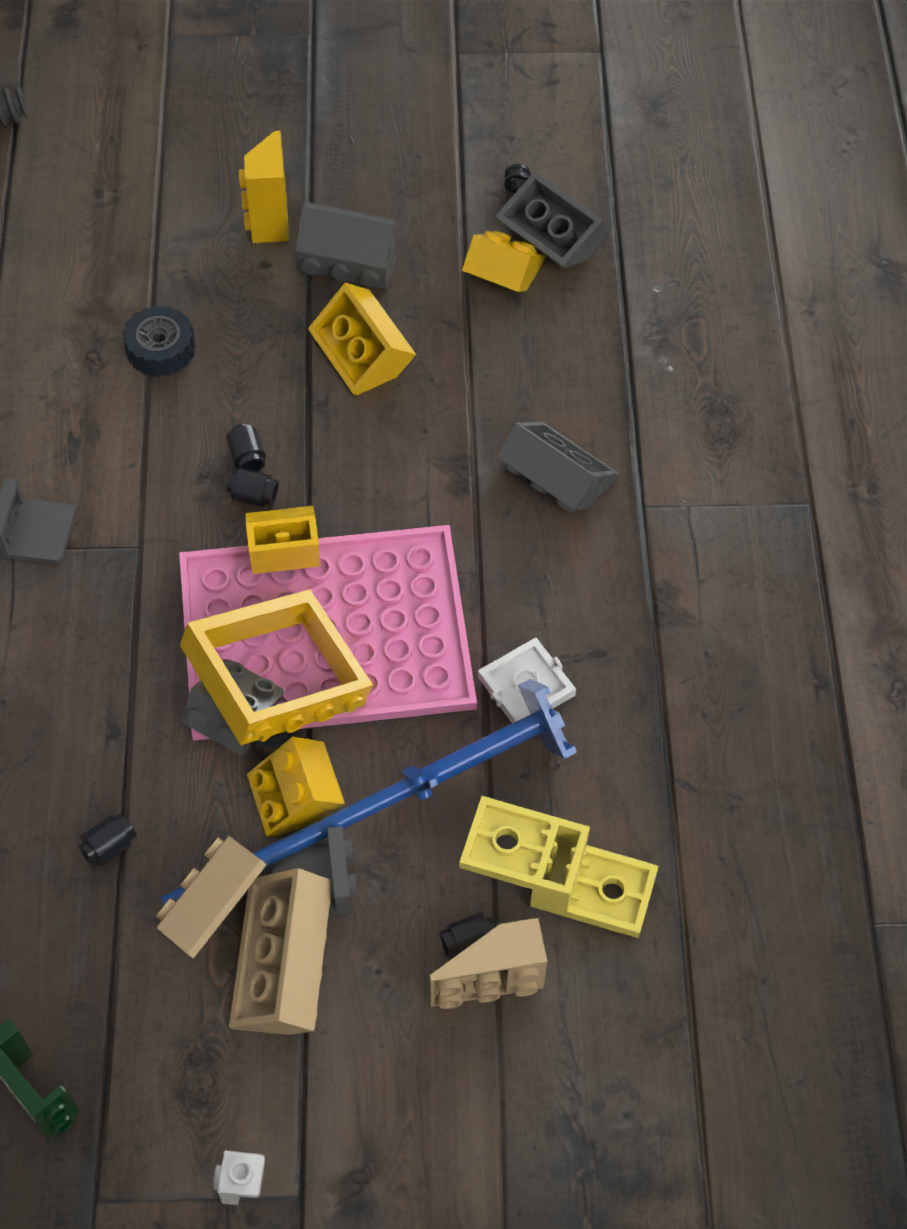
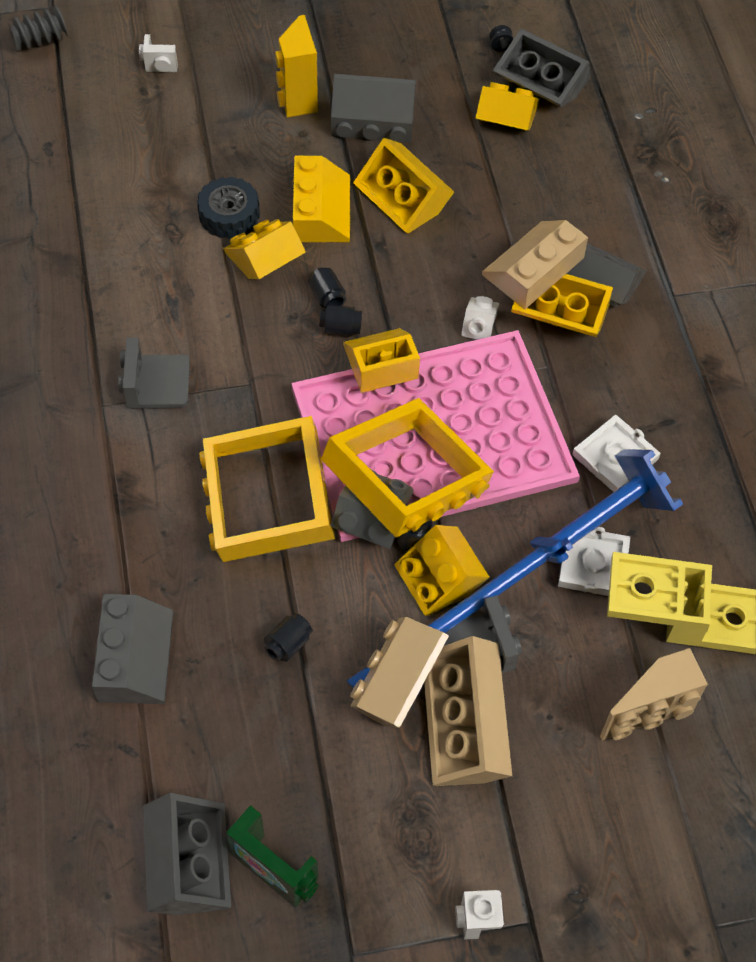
camera: 10 degrees left, 0 degrees up
(120, 726) = (278, 537): none -> yellow window
(121, 156) = (158, 57): none -> white bracket
(187, 394) = (265, 248): none -> yellow slope
(263, 346) = (321, 200): none -> yellow slope
(410, 504) = (479, 318): none -> white bracket
(458, 798) = (590, 562): none -> white plate
(464, 933) = (621, 675): black brick -> none
(481, 449) = (537, 261): none -> tan slope
(505, 498) = (571, 305): none -> yellow slope

